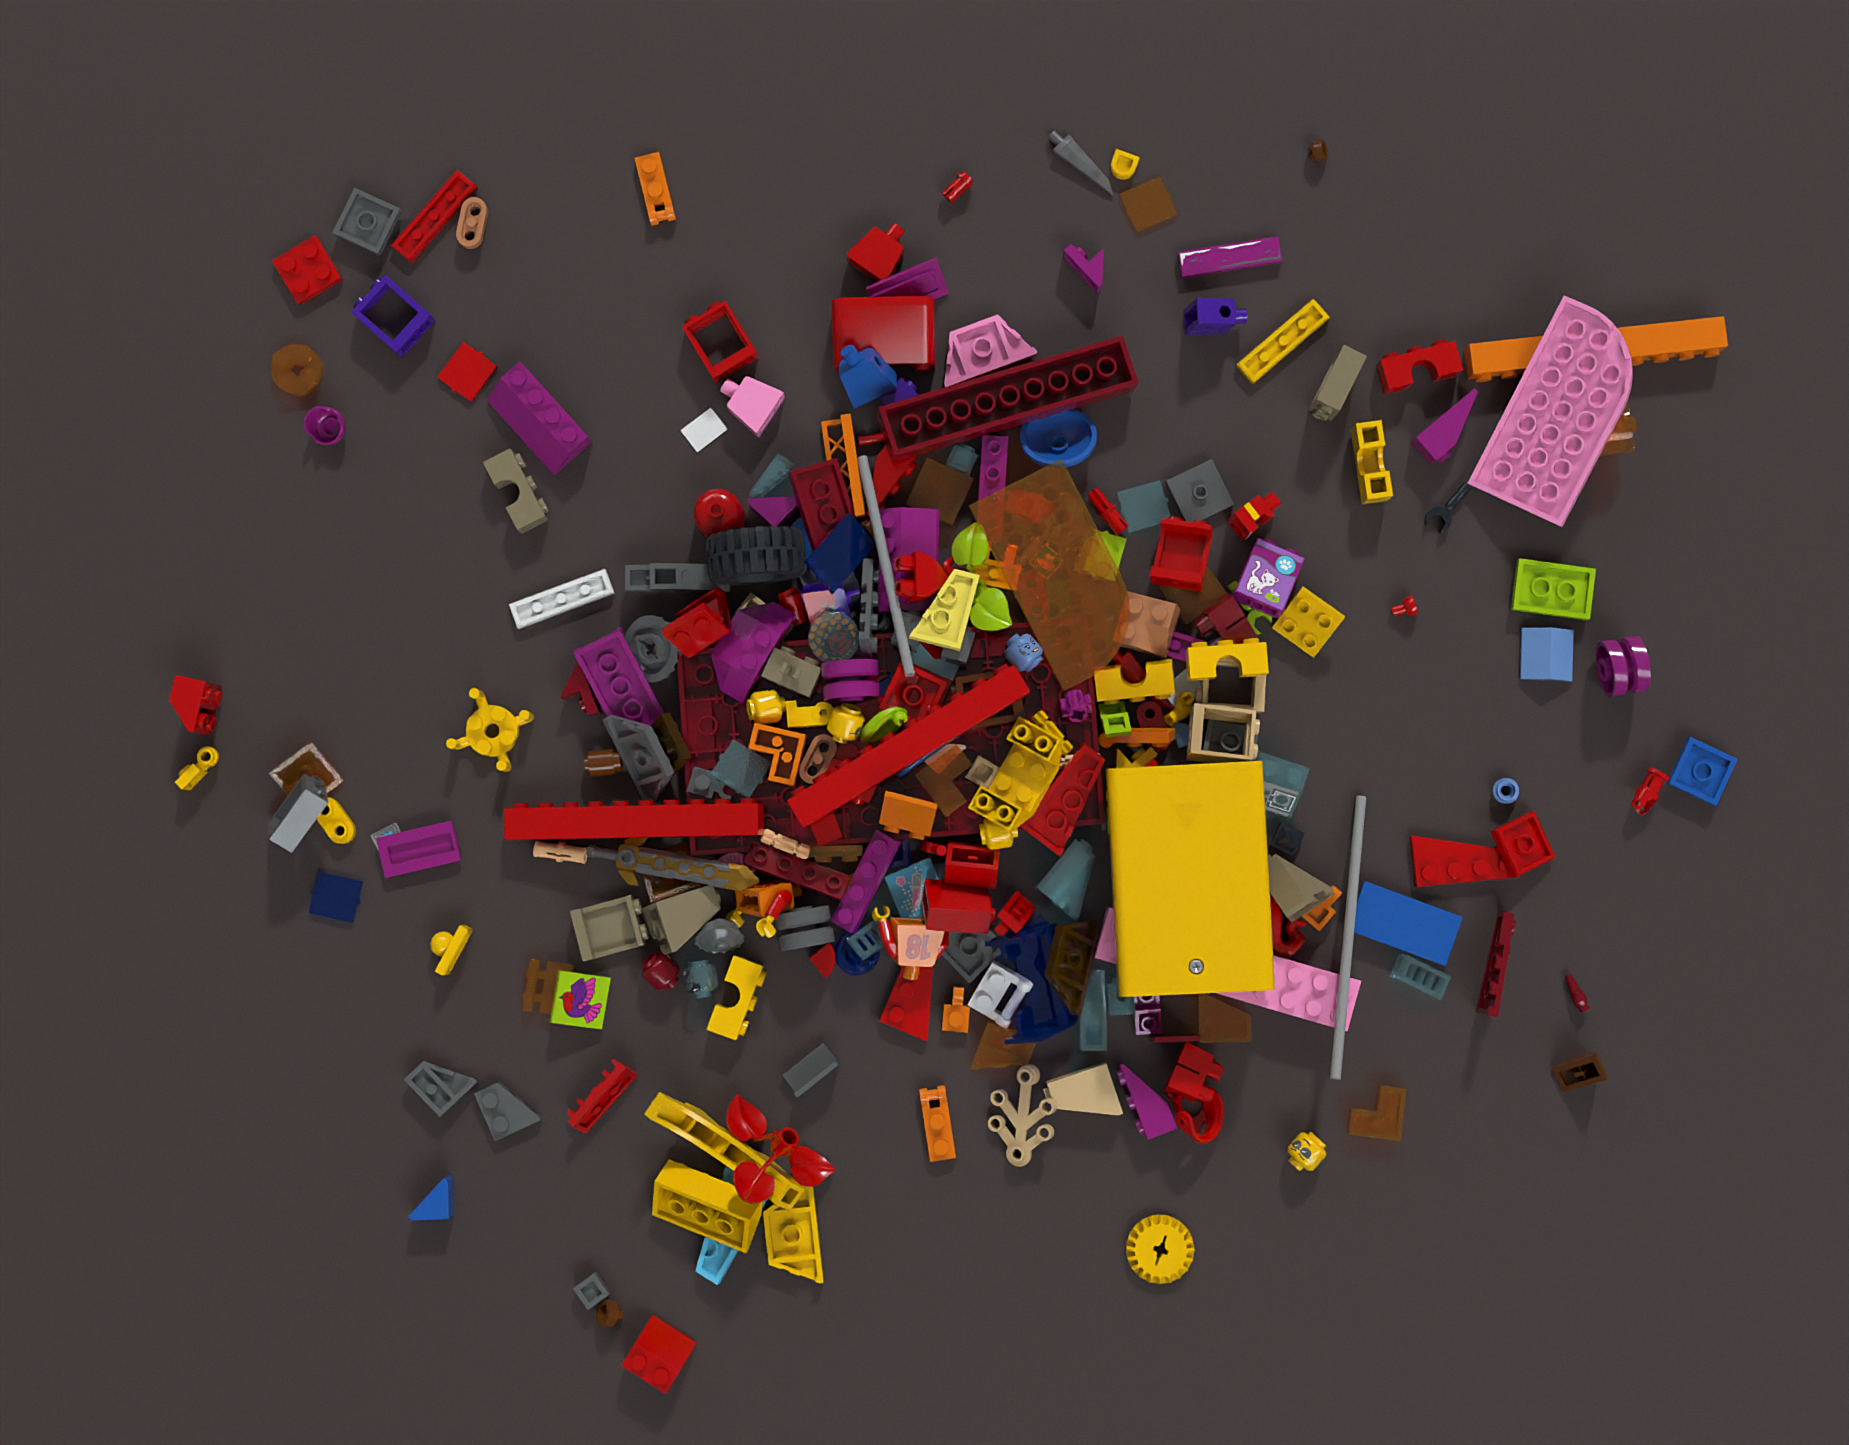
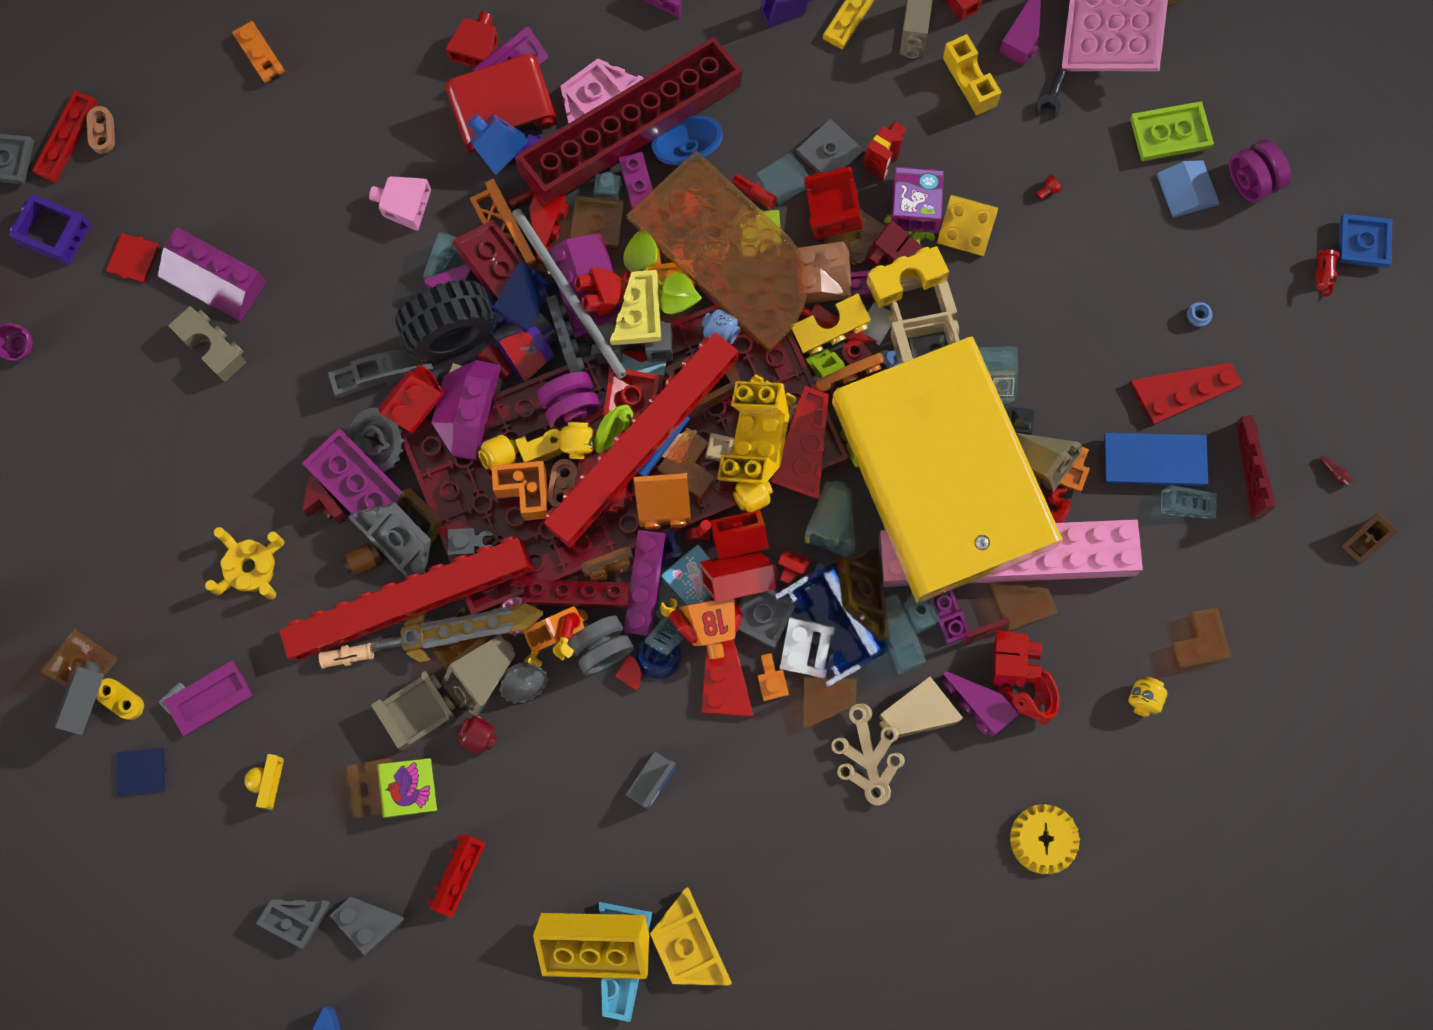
camera: 20 degrees left, 10 degrees down
(561, 598) = (278, 426): white tile -> none
(700, 978) = (517, 728): clear light blue head -> none
(704, 429) = (365, 239): white sticker -> none
(718, 512) = (392, 295): red cylinder -> none
(719, 1142) = (592, 880): yellow arch -> none
(731, 1020) = (559, 758): yellow arch -> none
(735, 361) = (372, 172): red window -> none
(740, 769) = (493, 517): clear light blue piece -> none
(752, 1182) = (630, 899): red plant -> none
(785, 844) = (557, 572): light nougat axle -> none
(792, 672) = (513, 414): dark tan brick -> none
(826, 829) = (591, 546): red tile -> none
(833, 637) = (539, 368): clear light blue tile -> none
(937, 1124) = (790, 792): orange plate -> none
(1076, 705) = (784, 358): magenta gear -> none
(1182, 708) = (882, 337): yellow arm -> none
(1348, 936) = (1111, 487): light grey piece -> none
(1523, 844) = (1234, 354): red tile -> none

